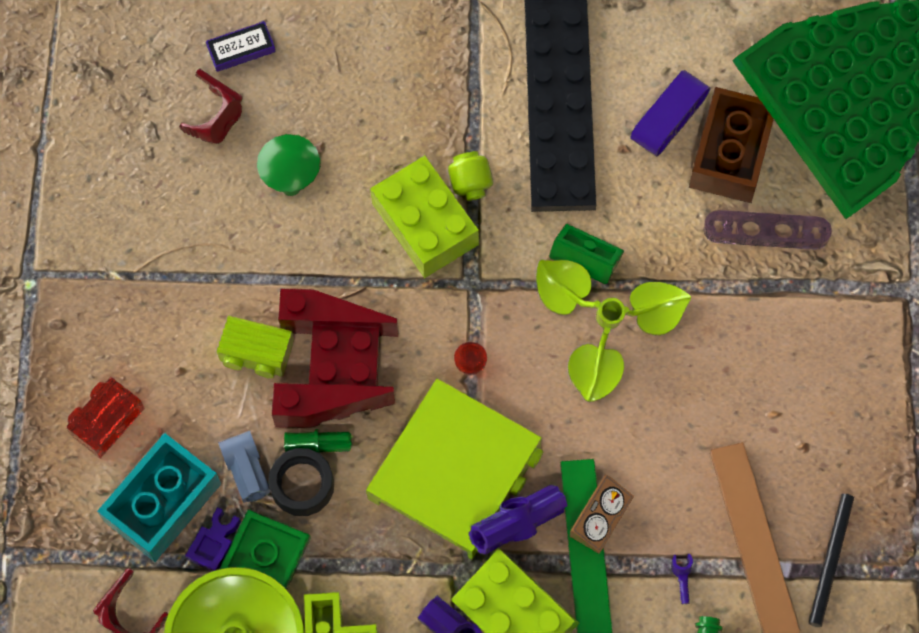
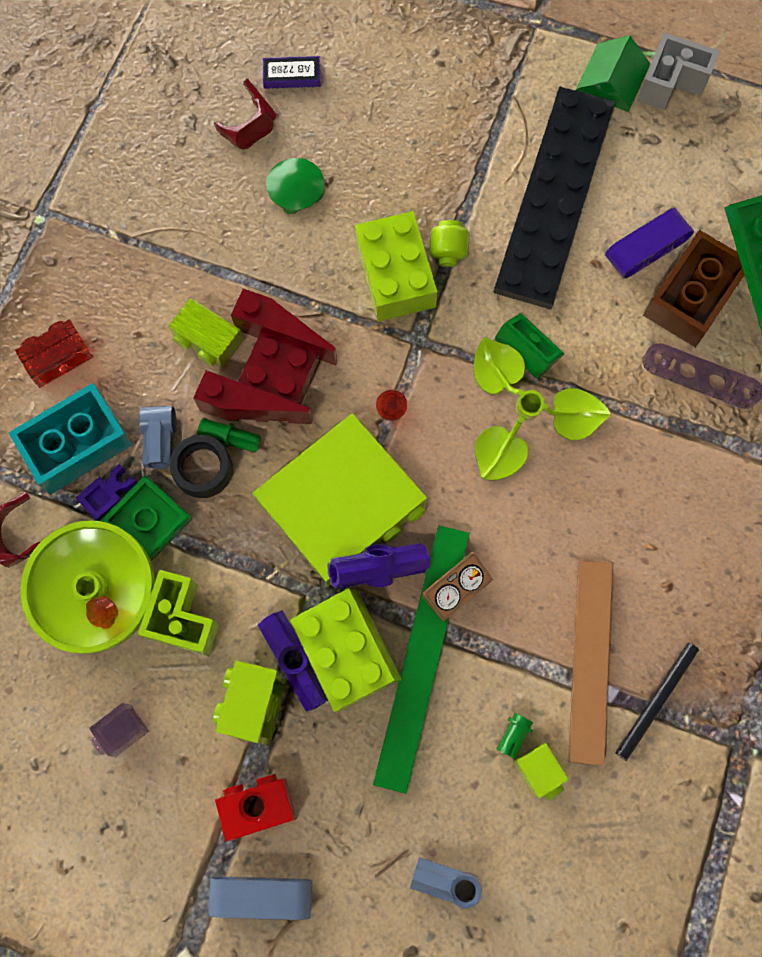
camera: 20 degrees right, 5 degrees up
(682, 574) = (513, 667): dark purple hand -> none

